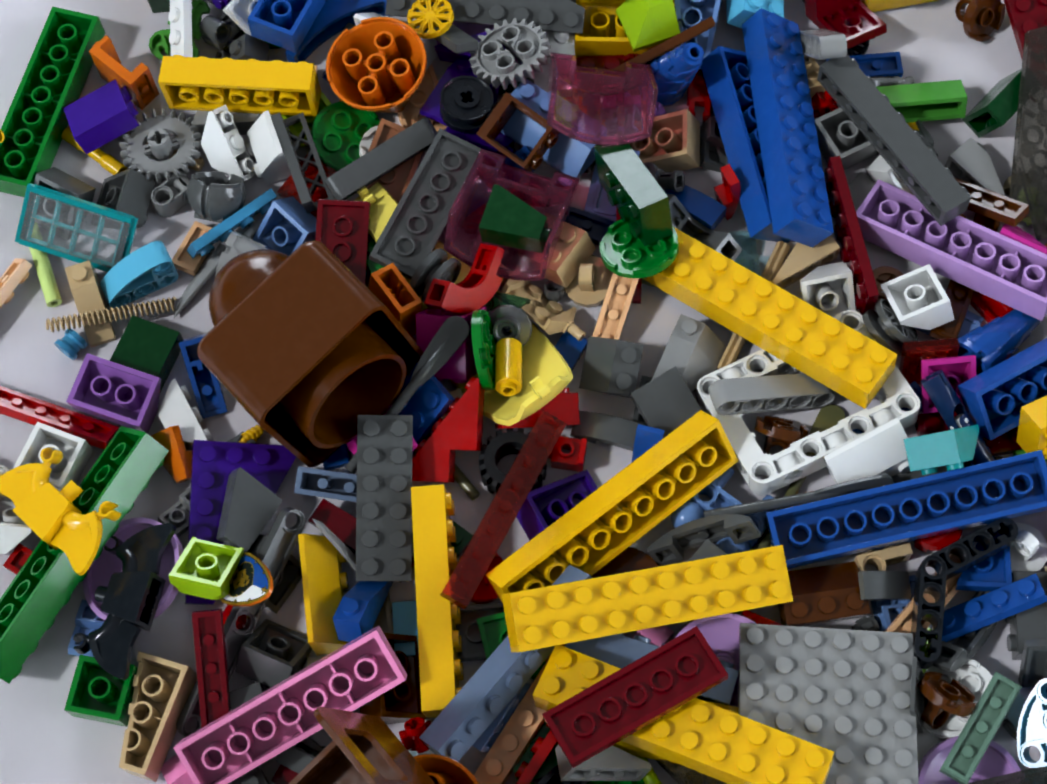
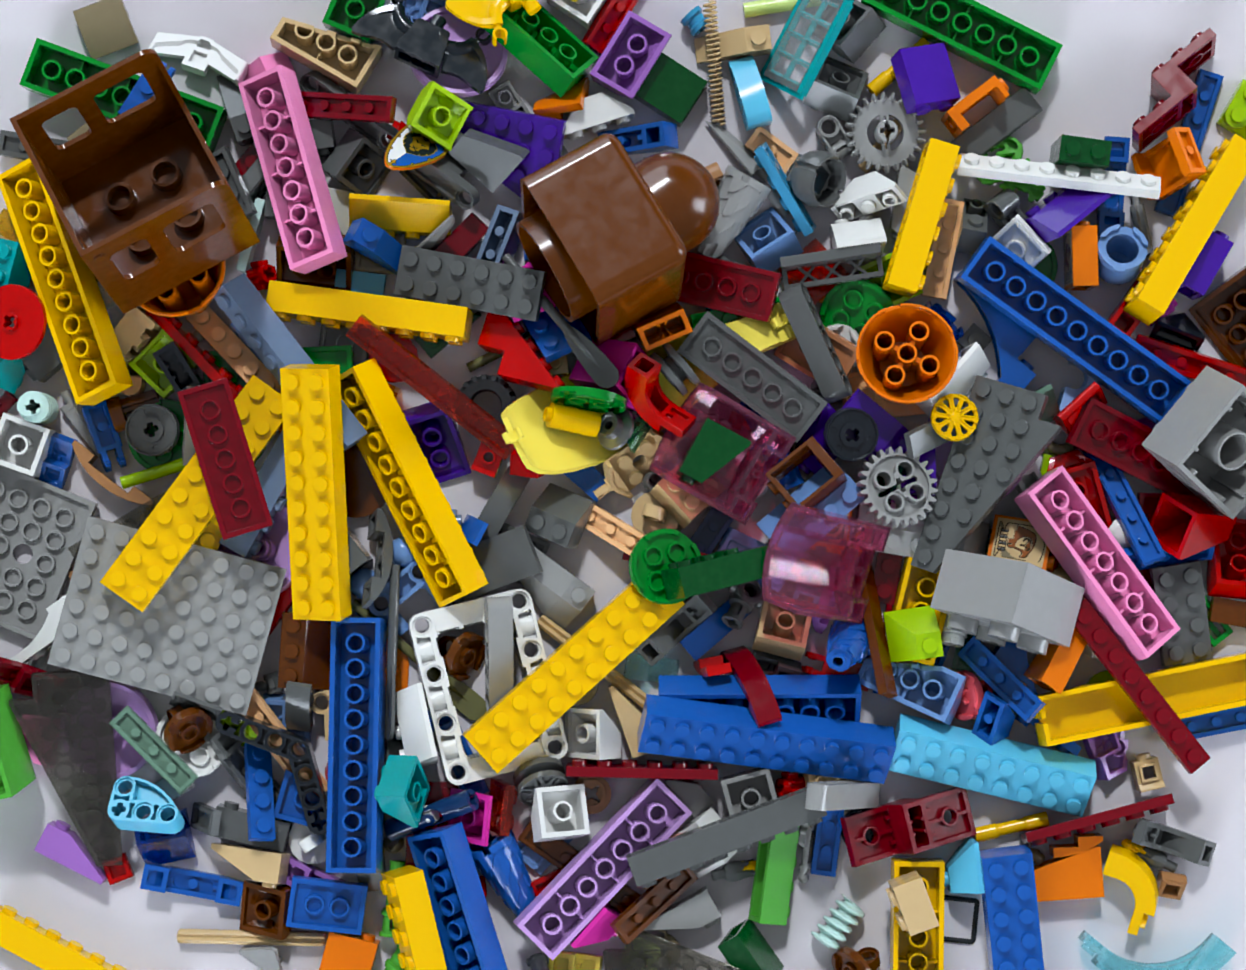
camera: 100 degrees right, 20 degrees up
(134, 49) = (998, 124): none -> dark grey slope
(733, 143) = (754, 685): none -> dark red slope
(943, 40) = (838, 923): none -> light aqua piece

